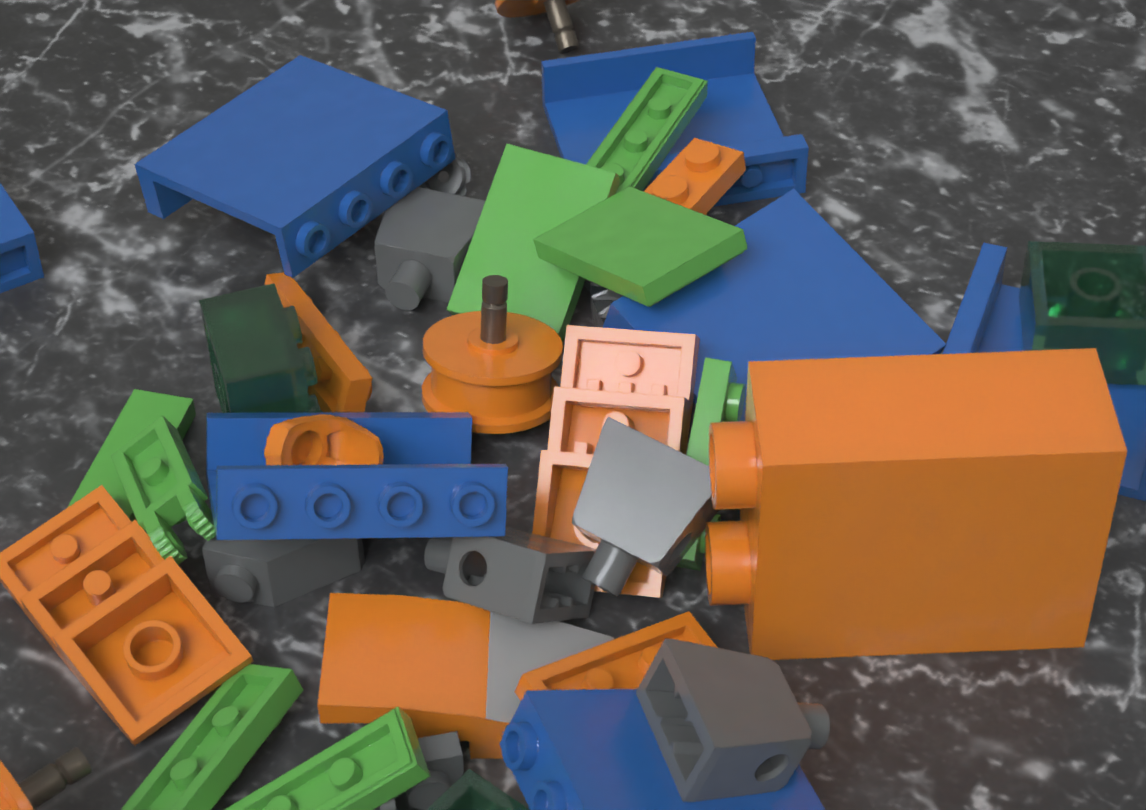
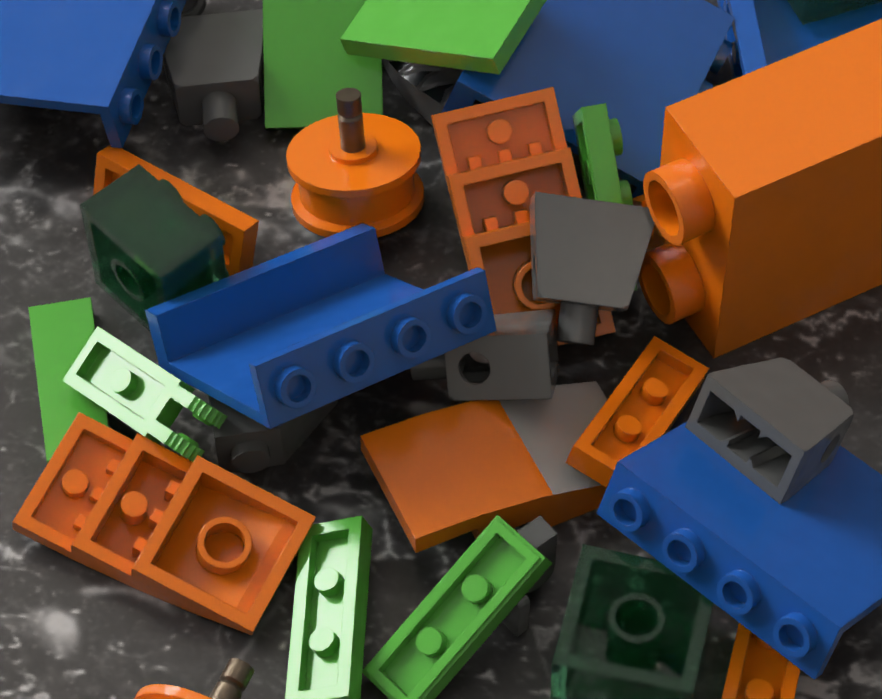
camera: 25 degrees left, 10 degrees up
(322, 441) = (272, 301): orange hair -> none

